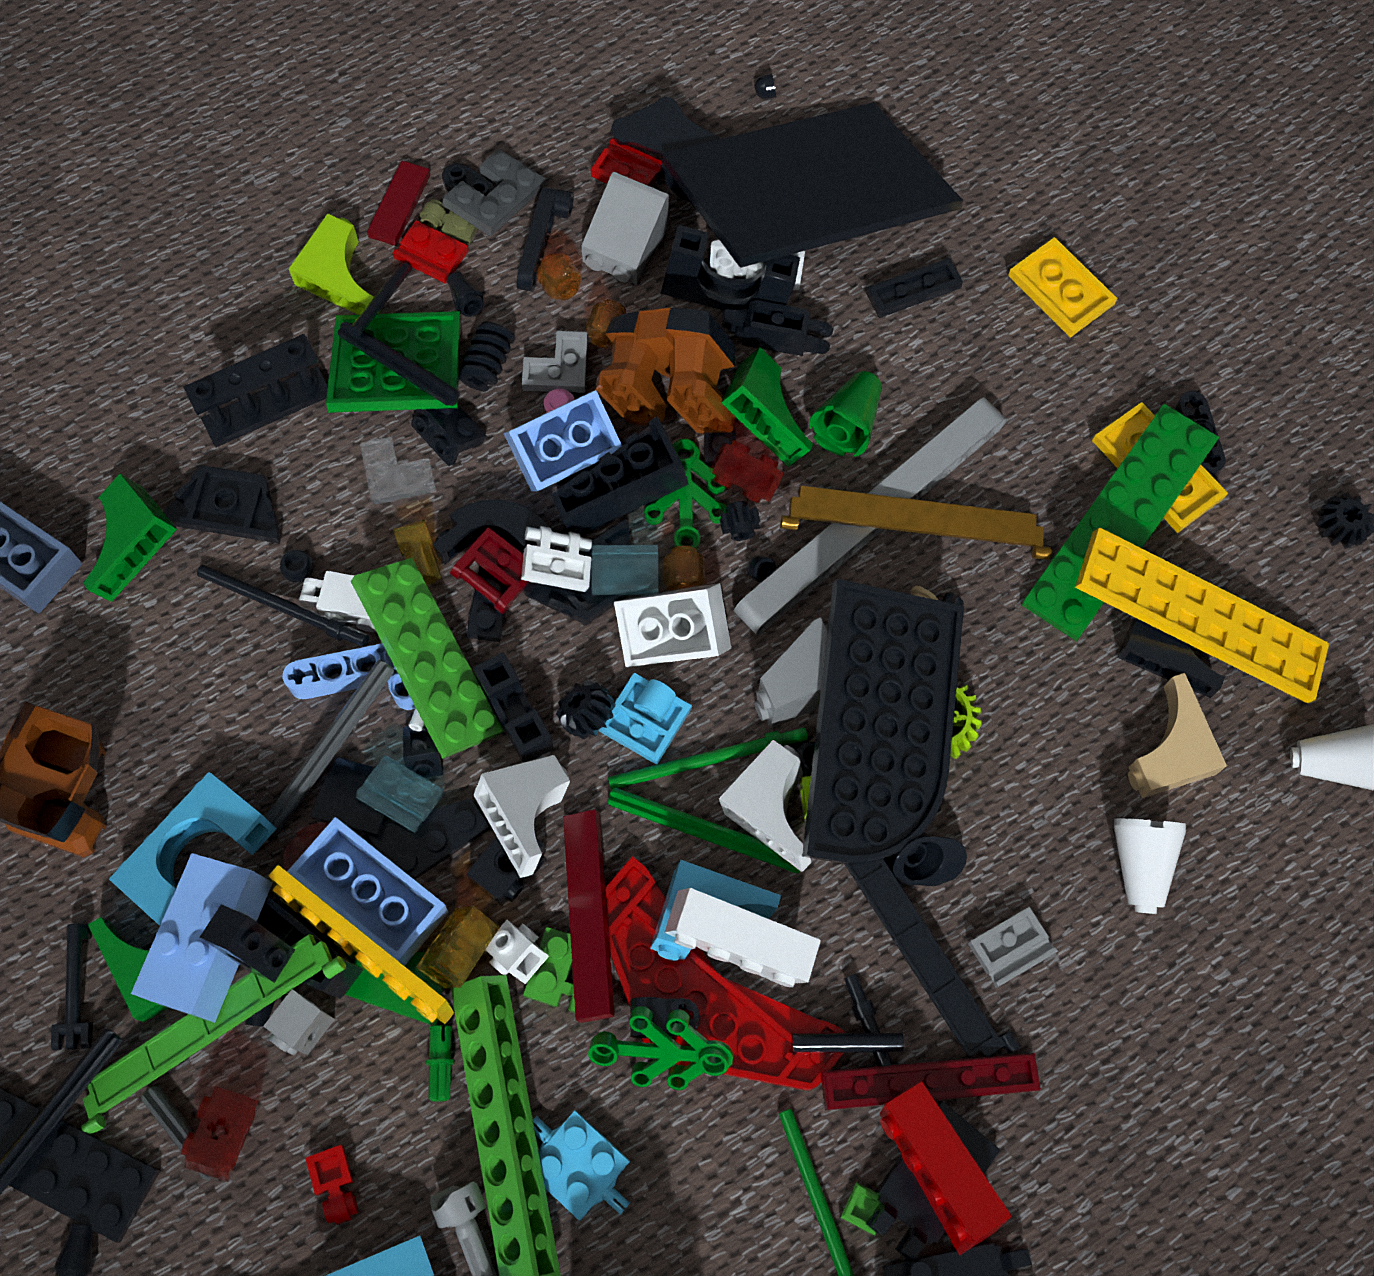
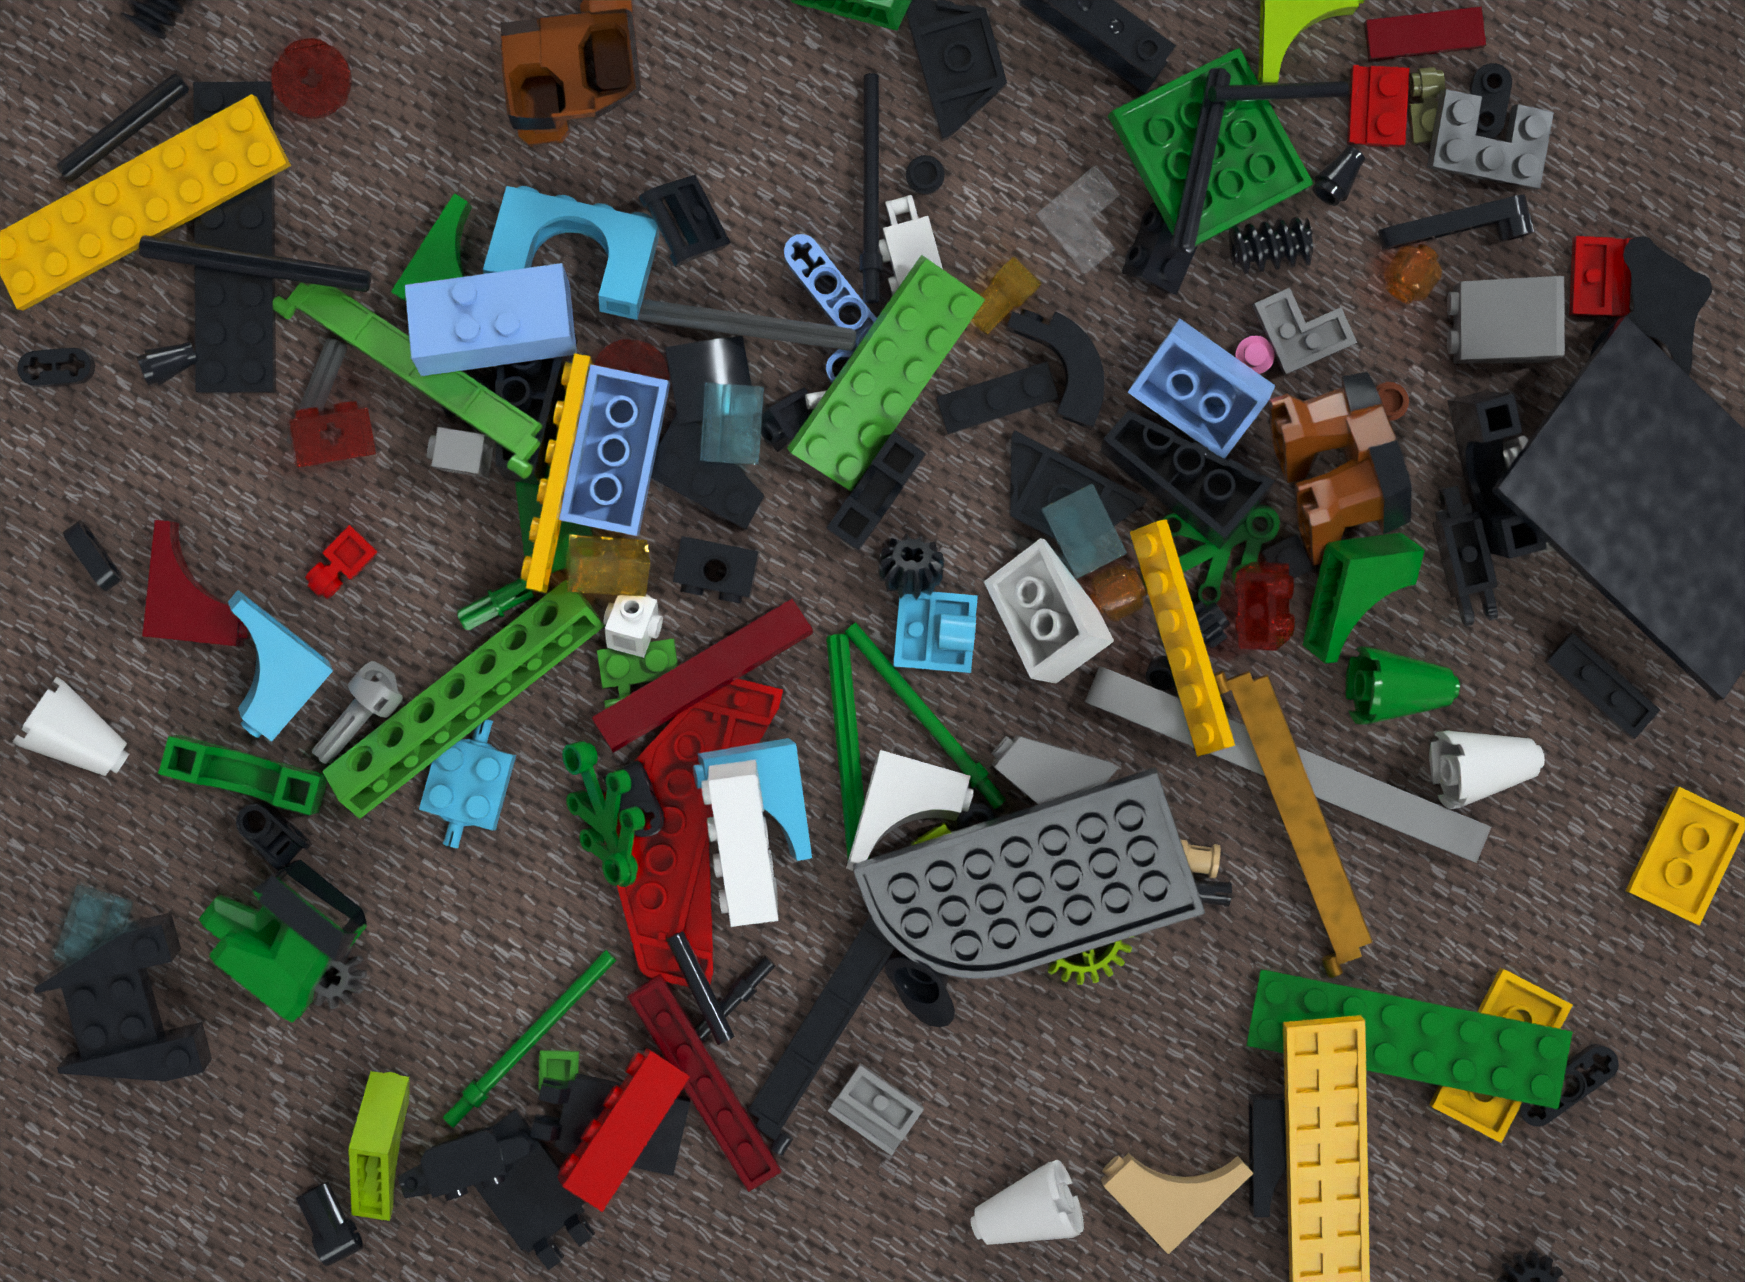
camera: 65 degrees right, 20 degrees up
(72, 1025) = (359, 231): black hinge -> none
(221, 753) = (693, 216): none -> black plate
(247, 943) = (499, 374): black brick -> none
(499, 560) = (1028, 397): dark red plate -> none
(514, 799) = (770, 547): white arch -> none
(555, 566) = (1047, 456): white plate -> none
(599, 321) = (1380, 357): clear orange head -> none
(742, 534) = (1182, 638): none -> yellow plate
(934, 387) = (1480, 765): none -> white cone

